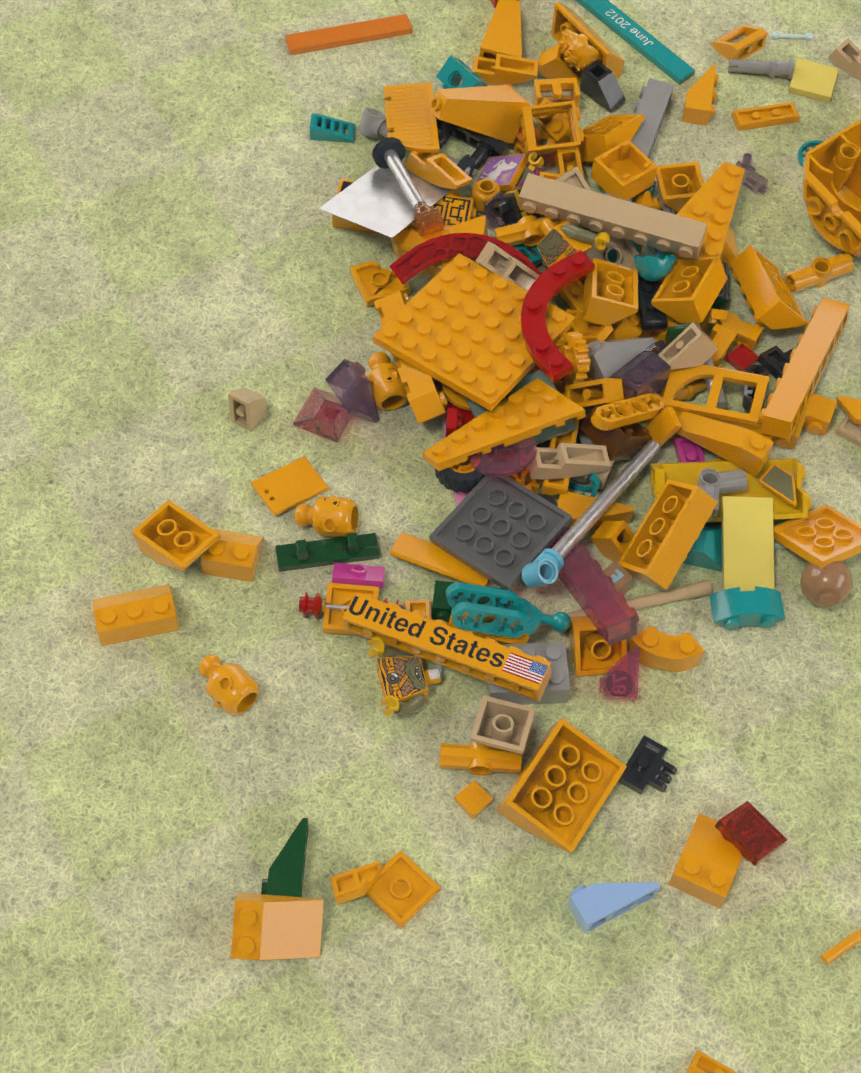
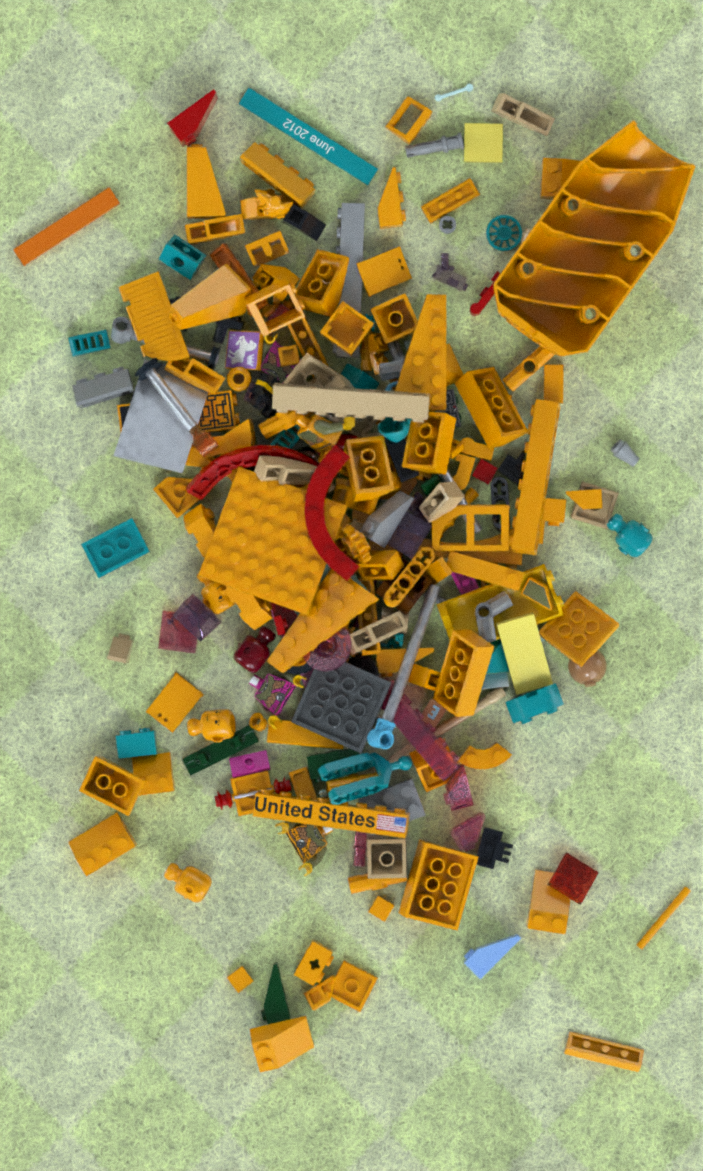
camera: 10 degrees left, 30 degrees up
(226, 511) = (136, 744): none -> teal brick
(249, 833) = (240, 979): none -> light orange tile
(283, 312) = (115, 548): none -> teal plate
(329, 166) = (103, 387): none -> light grey slope
(363, 824) = (315, 951): none -> light orange brick
(387, 531) = (253, 722): none -> light orange bush
(404, 454) = (254, 651): none -> dark red piece
(420, 503) = (274, 693): none -> torso
(468, 713) = (359, 848): none -> clear pink axle
(621, 726) = (468, 832): none -> clear pink slope
(676, 146) = (384, 271): none -> light orange container
(697, 572) = (495, 680): none -> white sticker
(754, 131) = (447, 219): none -> light grey bush
(784, 201) = (486, 294): none -> red plate
(846, 292) = (553, 383): none -> light orange tile

